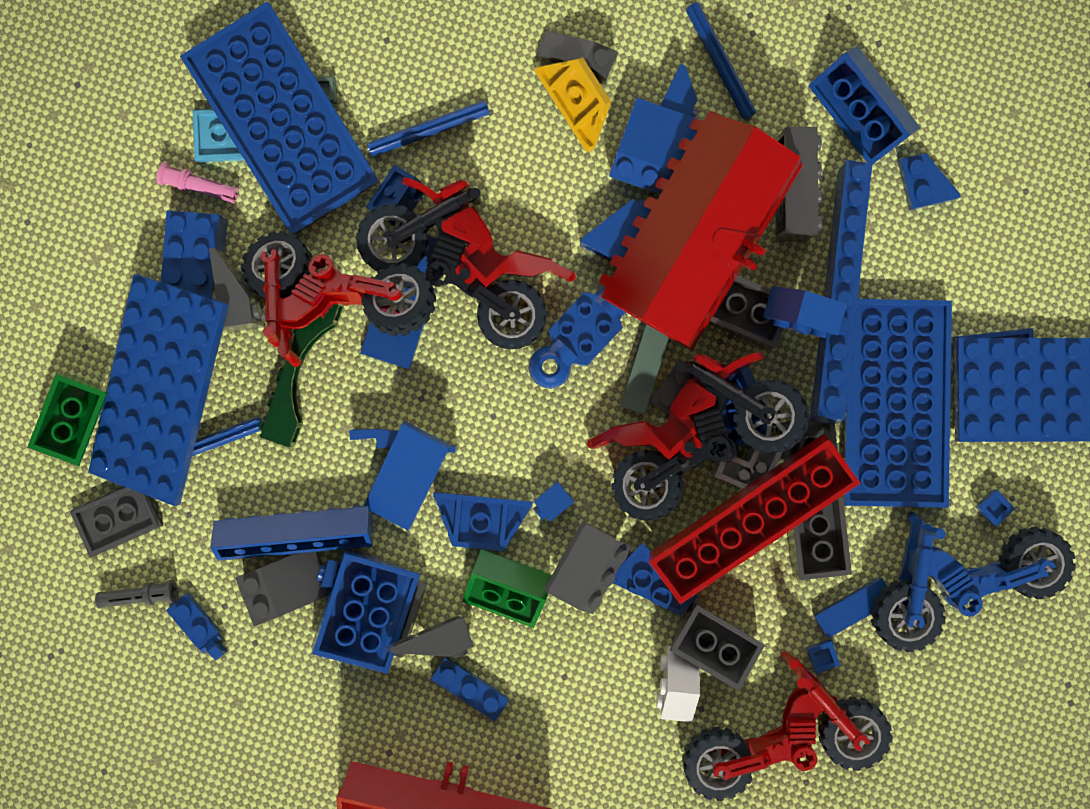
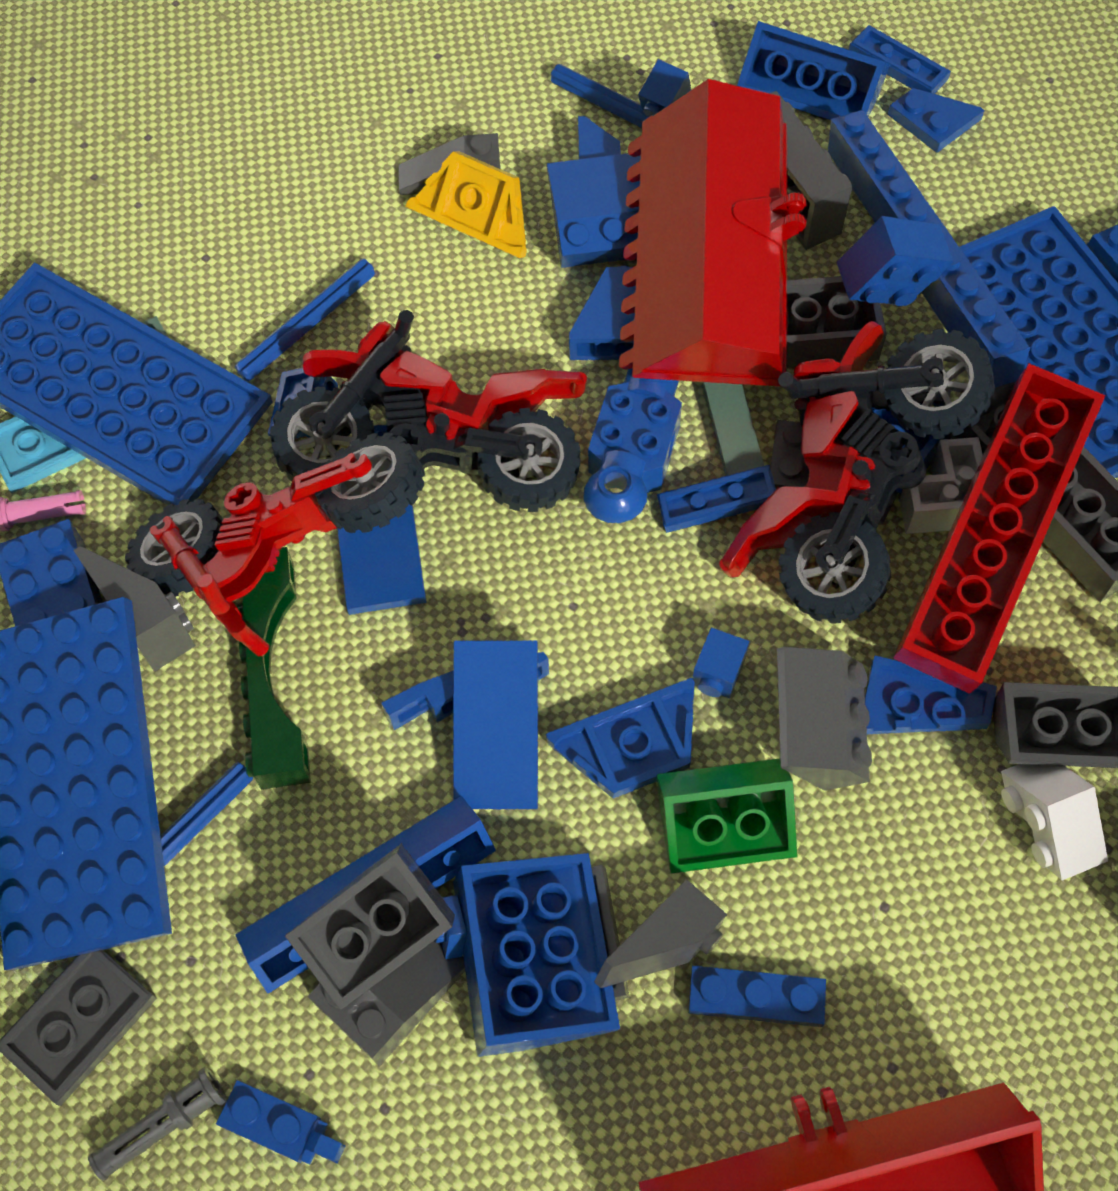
camera: 20 degrees left, 25 degrees down
(282, 566) = (371, 927): none -> dark grey slope
(612, 396) = (715, 498): none -> blue tile
(748, 78) = (663, 87): none -> blue slope
(932, 121) = (905, 63): none -> blue tile

